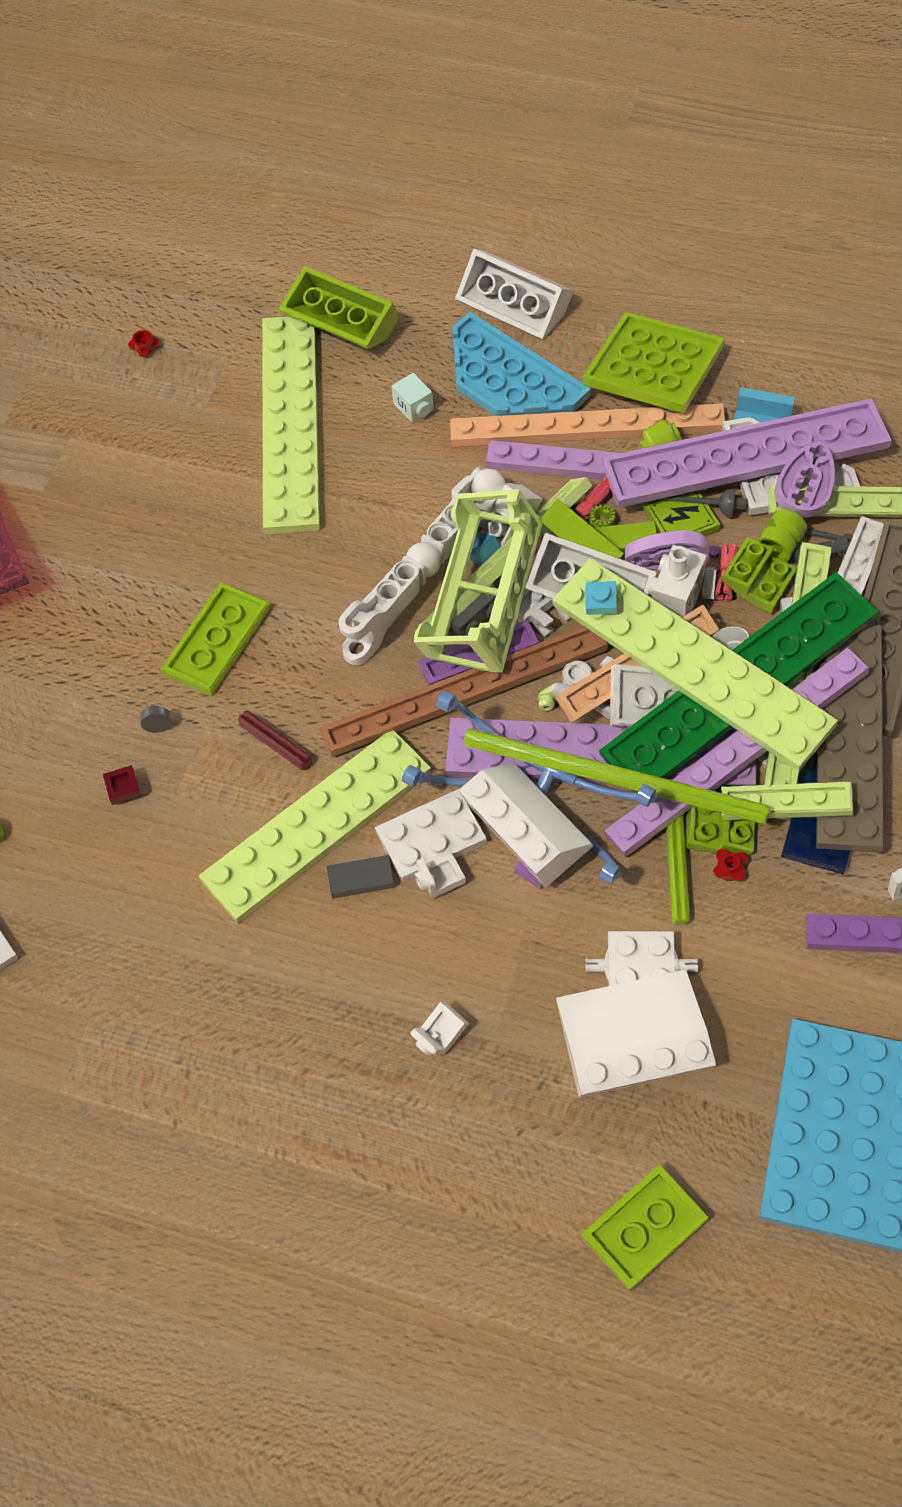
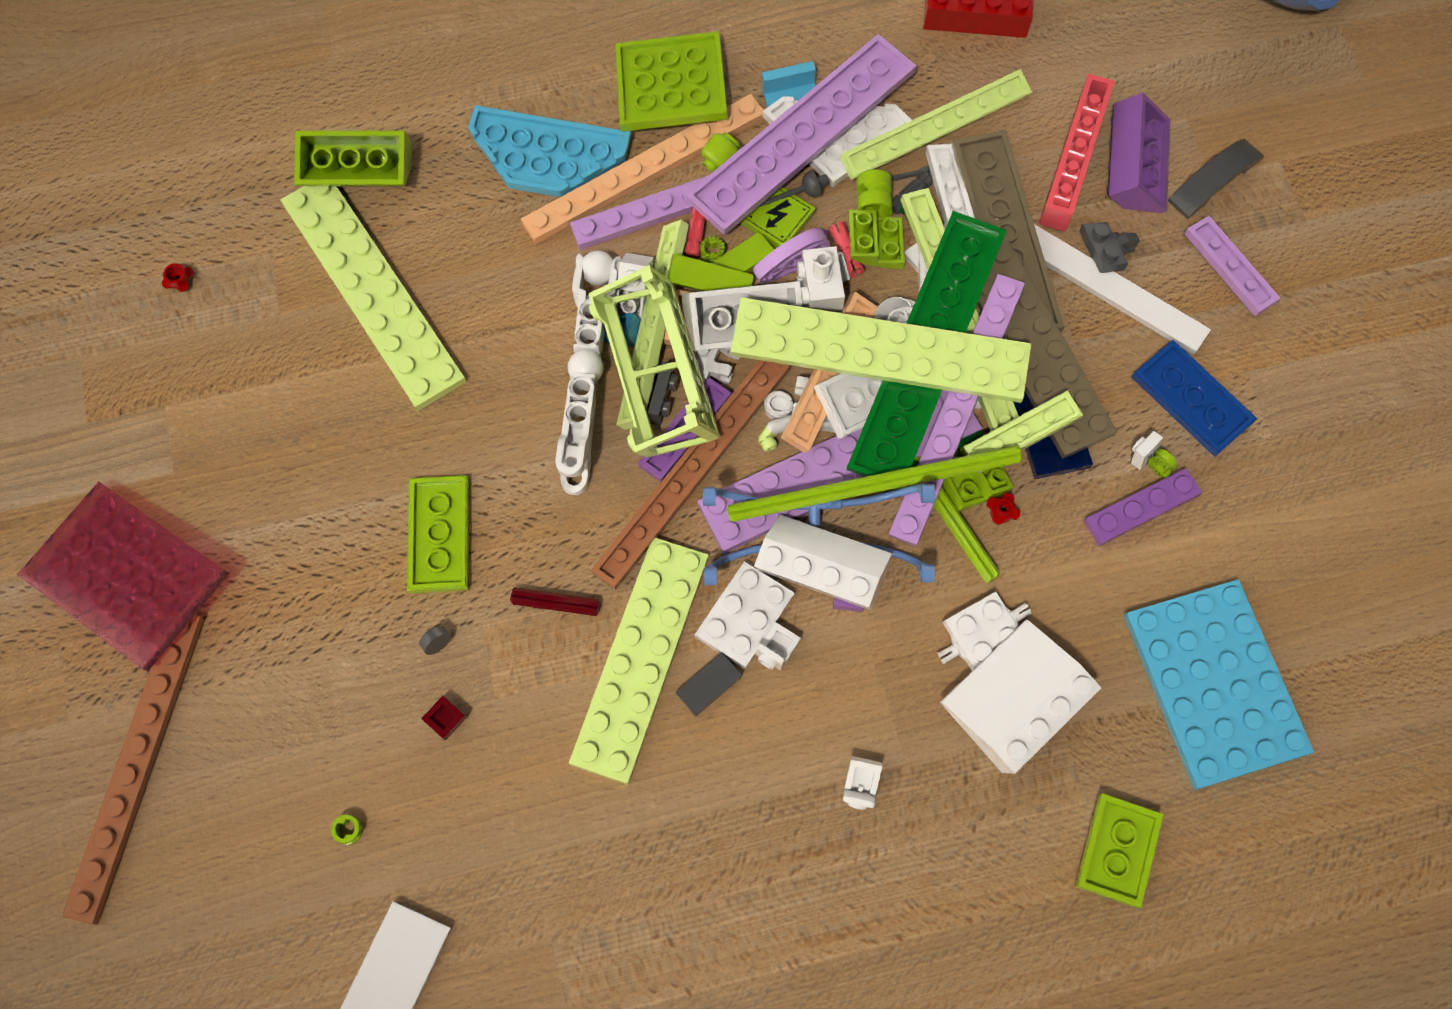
camera: 35 degrees left, 10 degrees up
(412, 397) = (475, 214): light aqua brick -> none
(513, 294) = (502, 70): white slope -> none
(601, 598) = (776, 330): medium azure plate -> none
(793, 475) = (858, 140): lavender piece -> none

